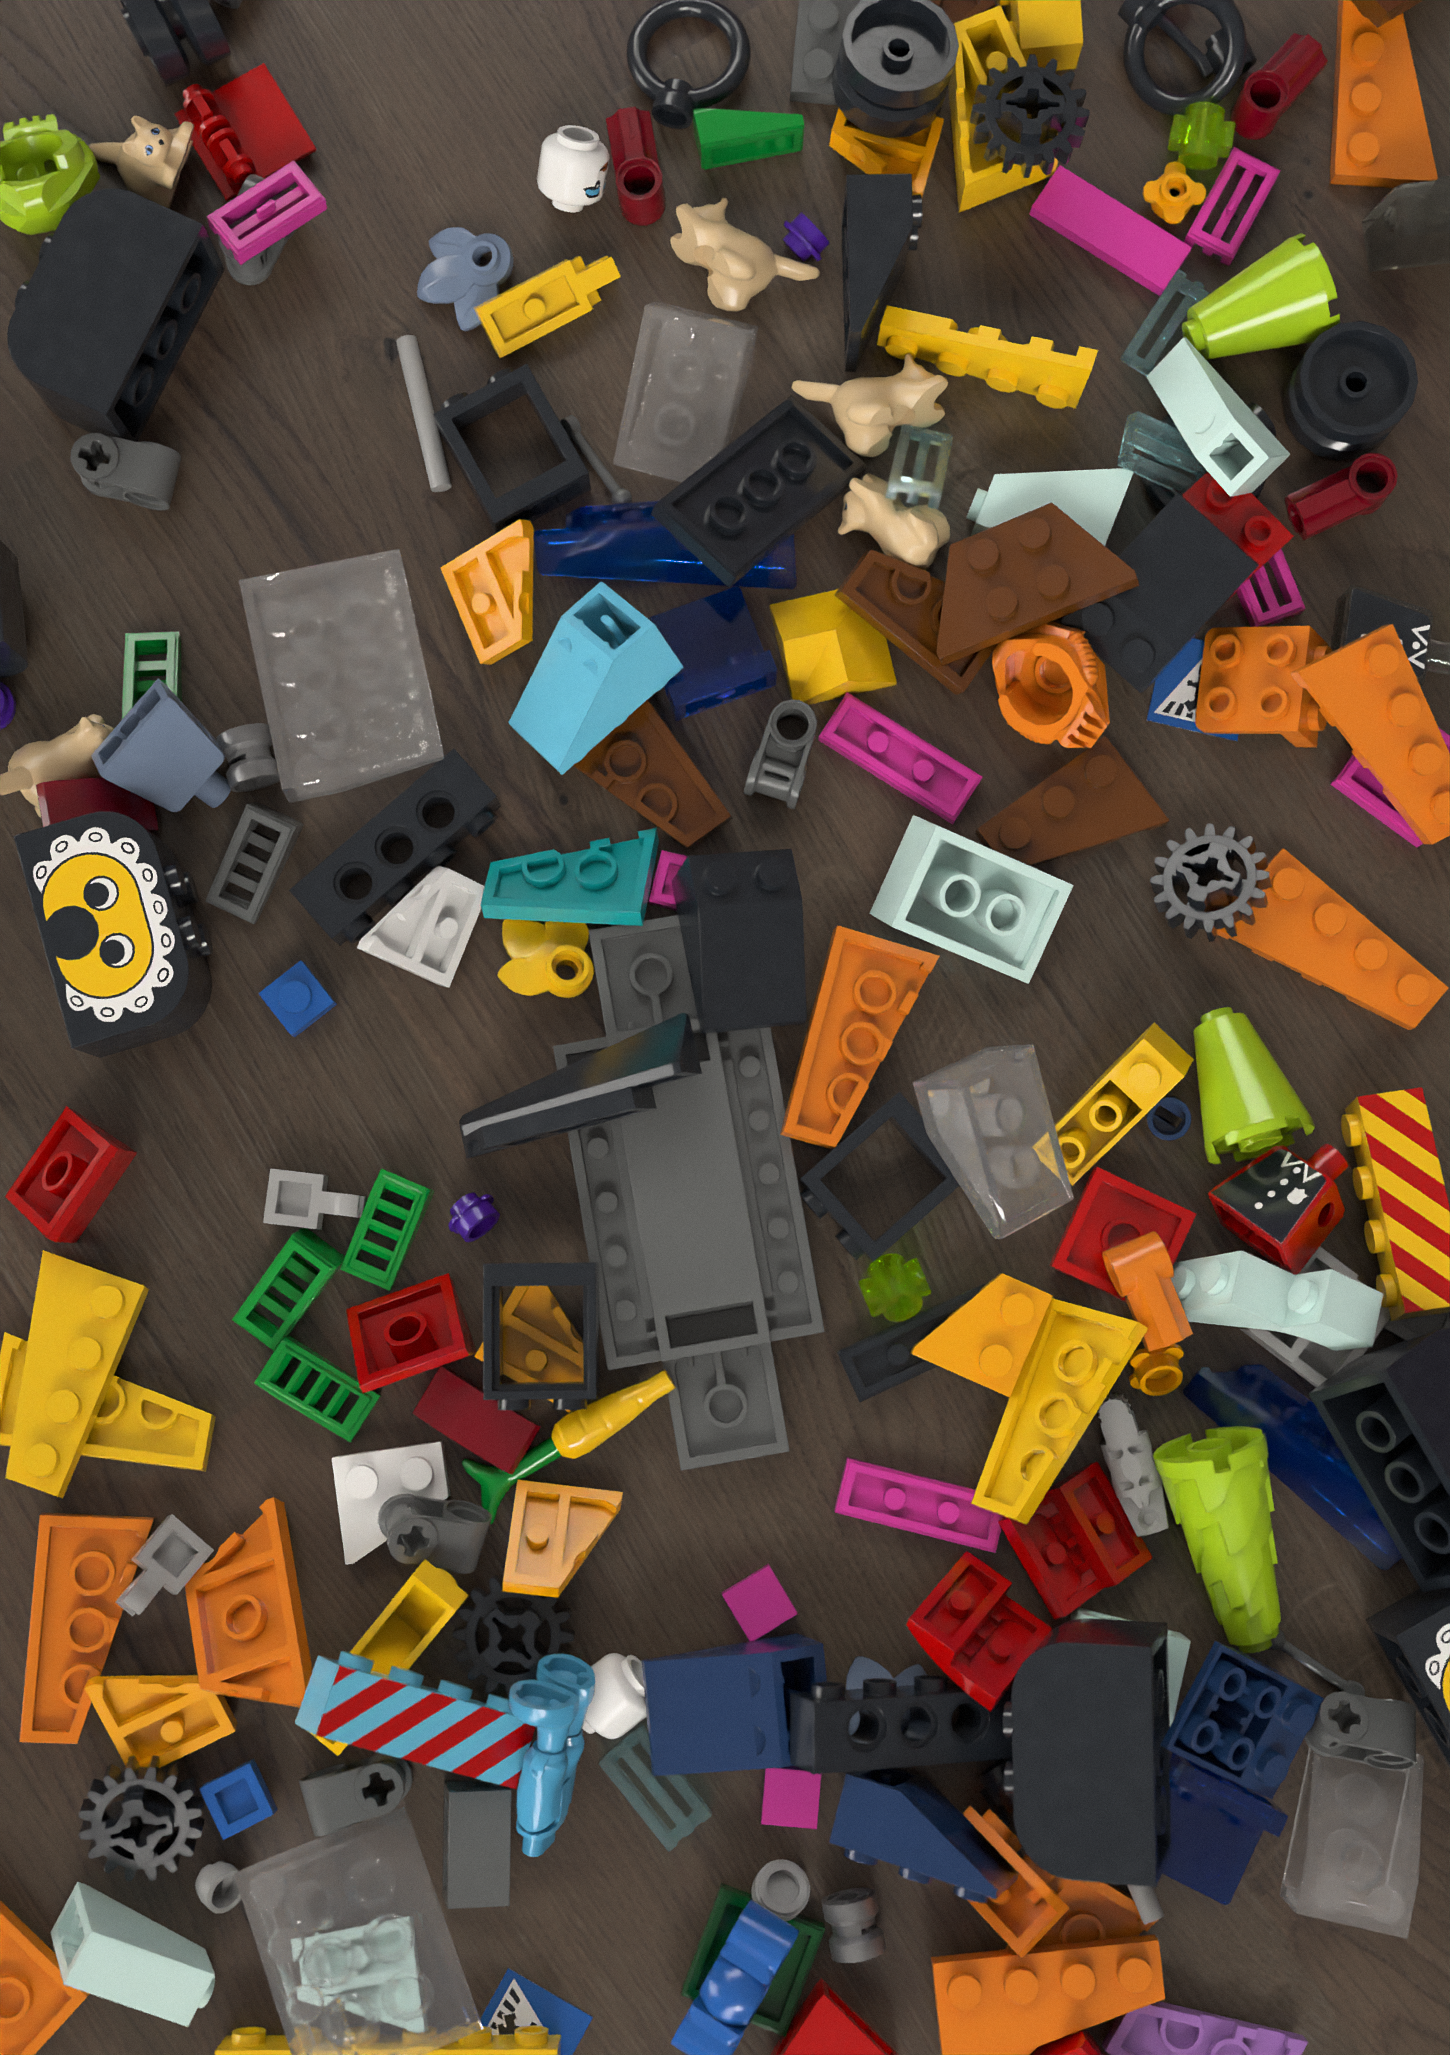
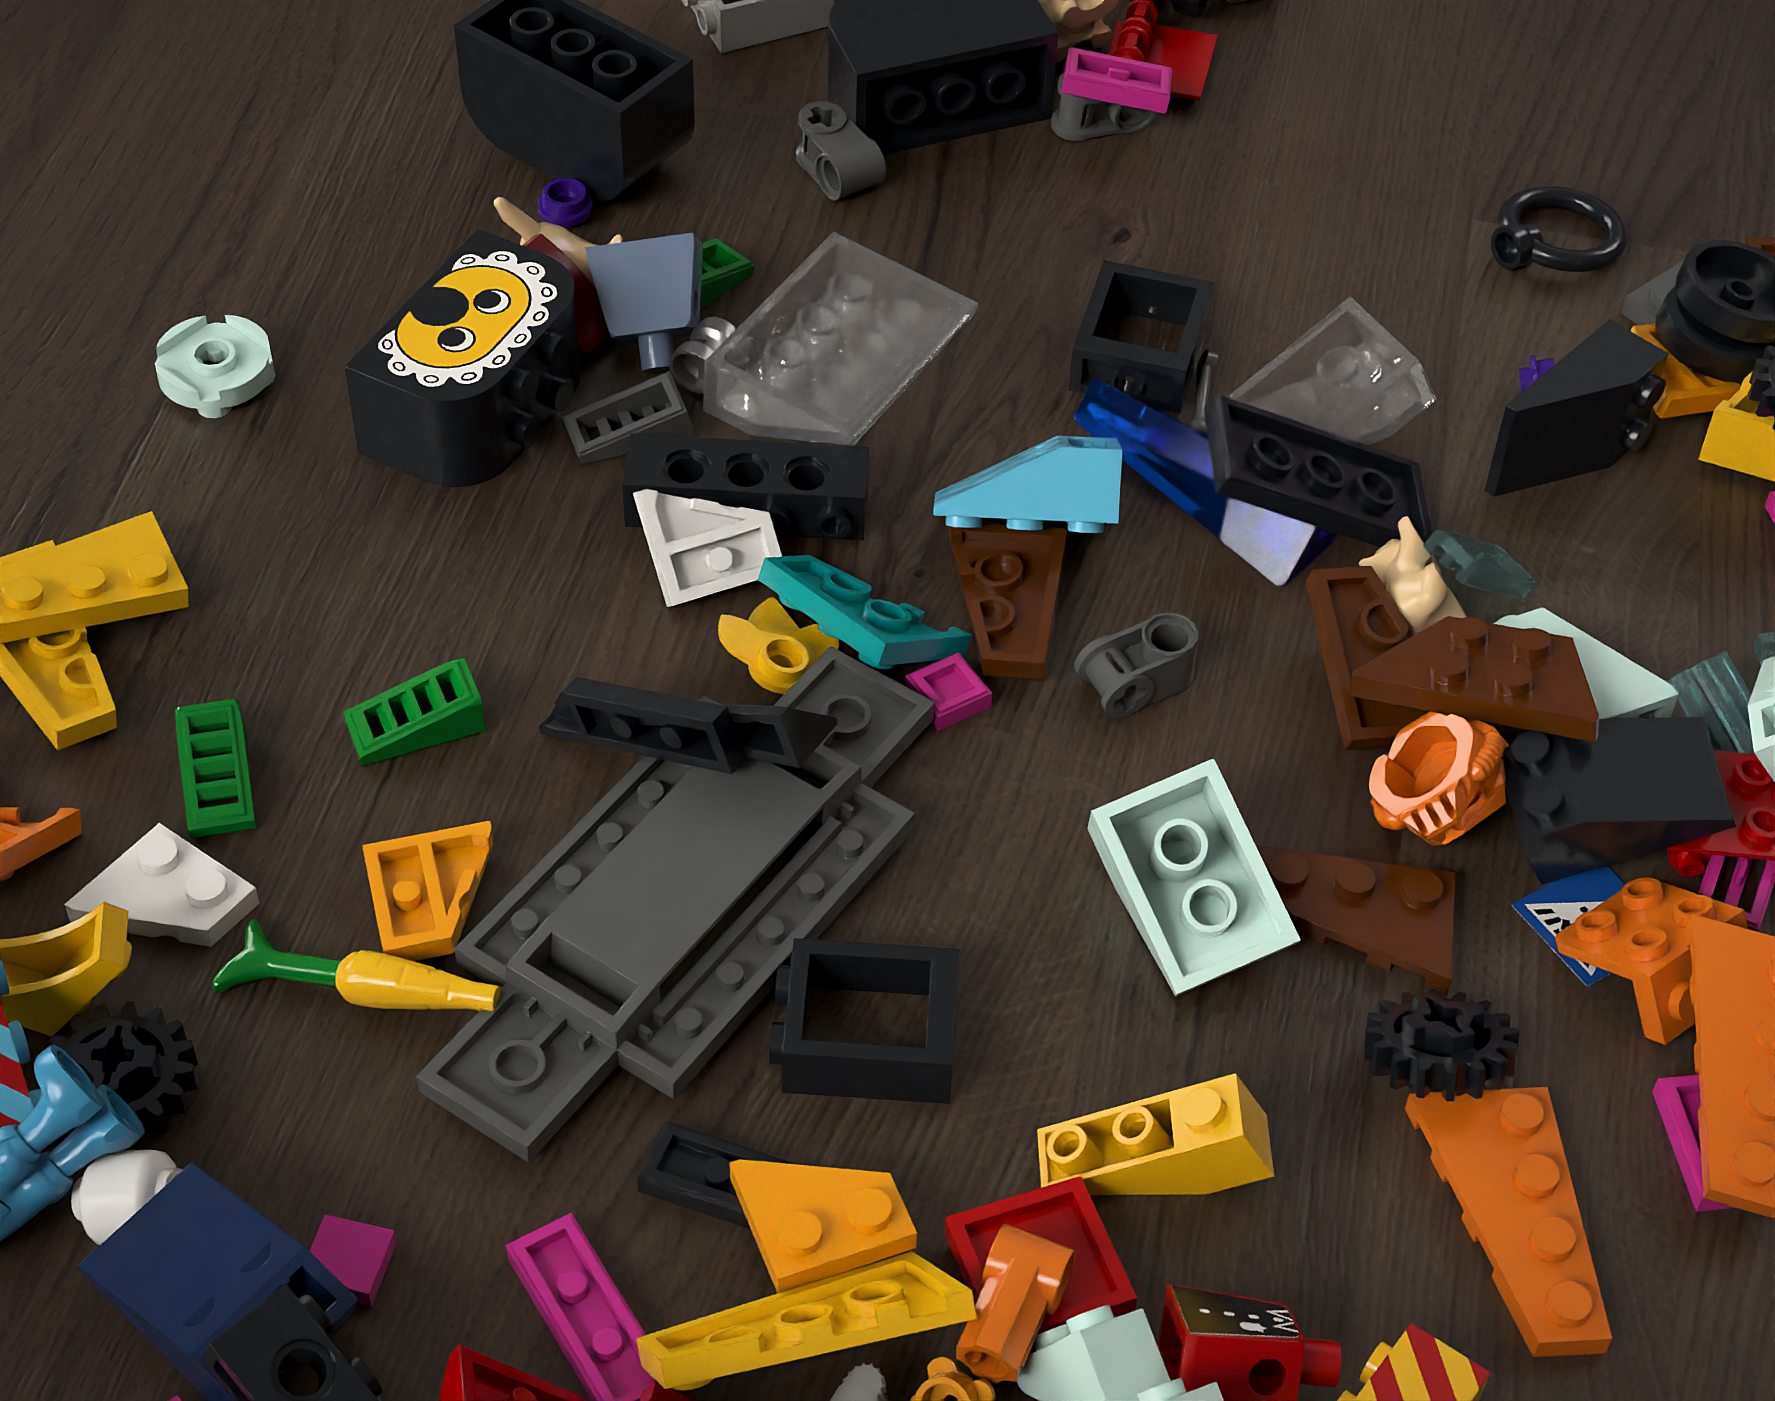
camera: 45 degrees right, 35 degrees down
(69, 1177) = (235, 498): red slope -> none
(297, 998) = (548, 525): blue plate -> none
(303, 1199) = (378, 638): light grey plate -> none
(316, 1252) = (327, 692): green slope -> none
(408, 1332) = (326, 798): red slope -> none
(423, 413) = (1077, 304): light grey bar -> none
(435, 1530) = (168, 941): dark grey piece -> none
(457, 274) = (1233, 229): sand blue plate -> none
(461, 1414) = (303, 897): dark red slope -> none
(473, 1216) = (489, 773): dark purple plate -> none
(496, 591) = (1025, 395): light orange wing -> none
(519, 1394) = (440, 791): black window -> none
(544, 302) = (1275, 275): yellow hinge -> none
(554, 1534) = (251, 1023): light orange wing -> none
(573, 168) = (1387, 216): white head -> none
(636, 165) = (1440, 254): dark red piece -> none
(684, 1824) = (28, 1343): clear light blue tile -> none
(718, 653) = (1149, 562): clear blue bracket -> none
(736, 261) = (1461, 348): tan animal -> none
(743, 939) = (952, 735): black slope -> none
(744, 136) = (1527, 287): green slope -> none
(829, 649) = (1261, 640): yellow slope -> none
(854, 1018) = (975, 887): orange wing -> none
(874, 406) = (1484, 508): tan animal -> none
(894, 1287) = (794, 1112): clear neon green gear -> none
(900, 758) = (1245, 752): dark pink tile -> none
(987, 354) = (1639, 557): yellow wing -> none
(997, 1135) = (1012, 1052): clear slope -> none
(1162, 1127) = (1213, 1198): dark blue hinge -> none
(1242, 1090) = (1290, 1234): lime cone -> none

